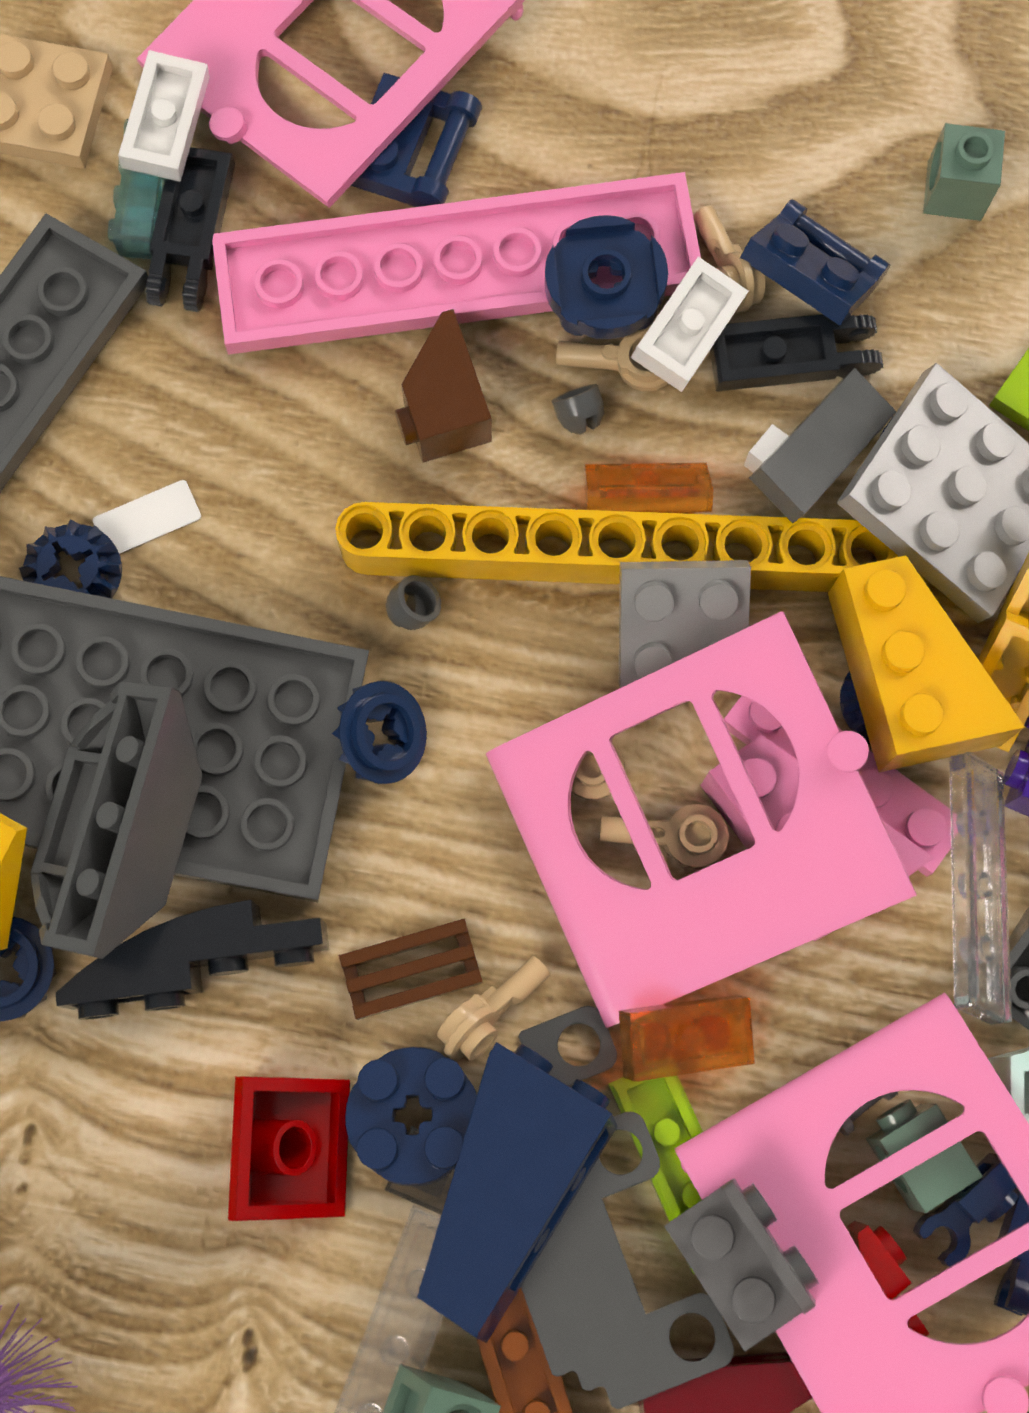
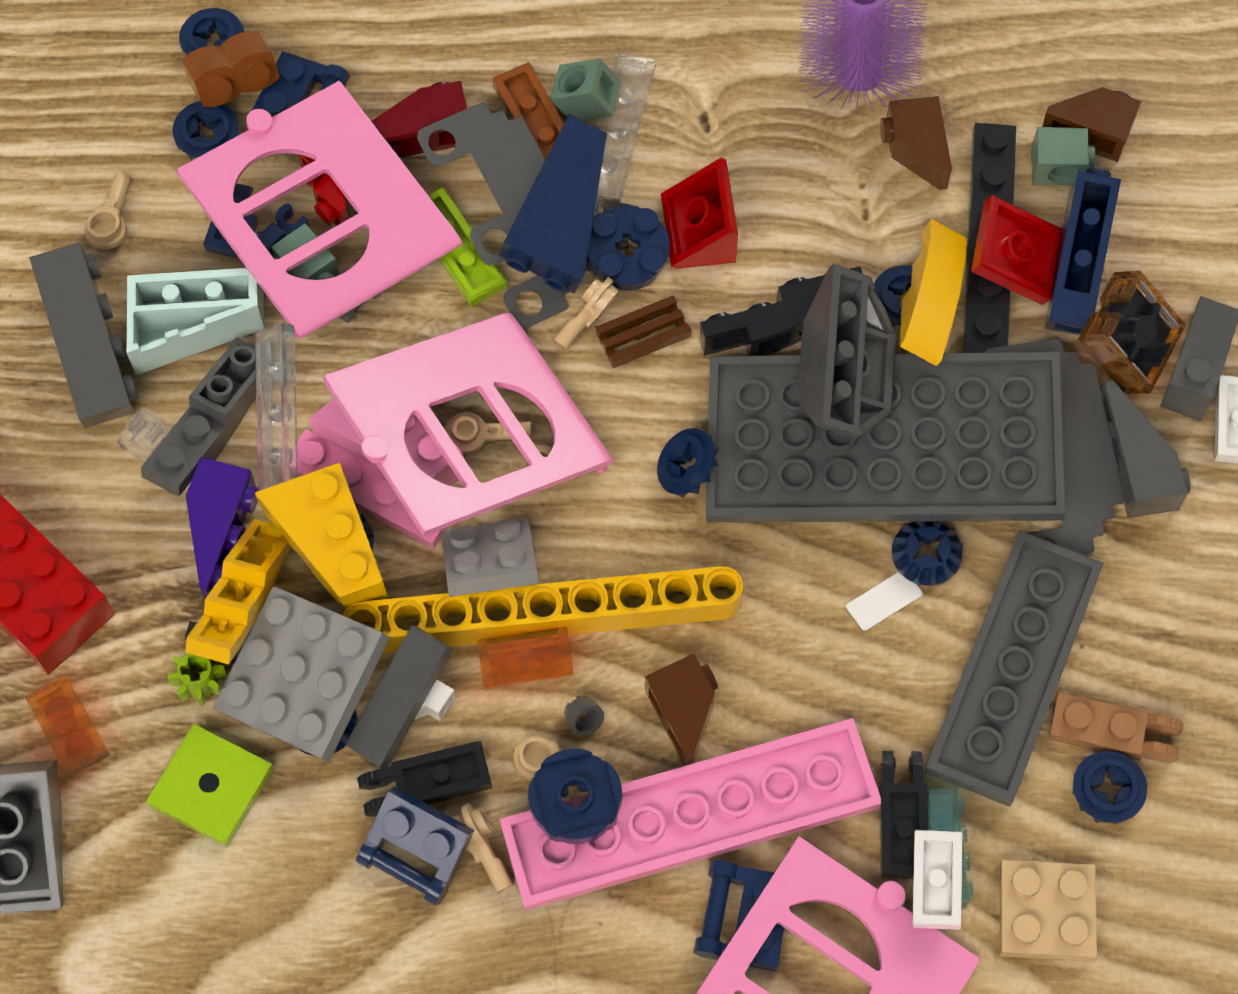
camera: 175 degrees right, 10 degrees down
(421, 605) = (675, 555): dark grey hinge -> none
(686, 1037) = (461, 305): clear orange plate -> none
(689, 324) = (507, 768): white plate -> none
(742, 1263) = (415, 178): flat silver bracket -> none
(964, 172) = (302, 937): sand green brick -> none

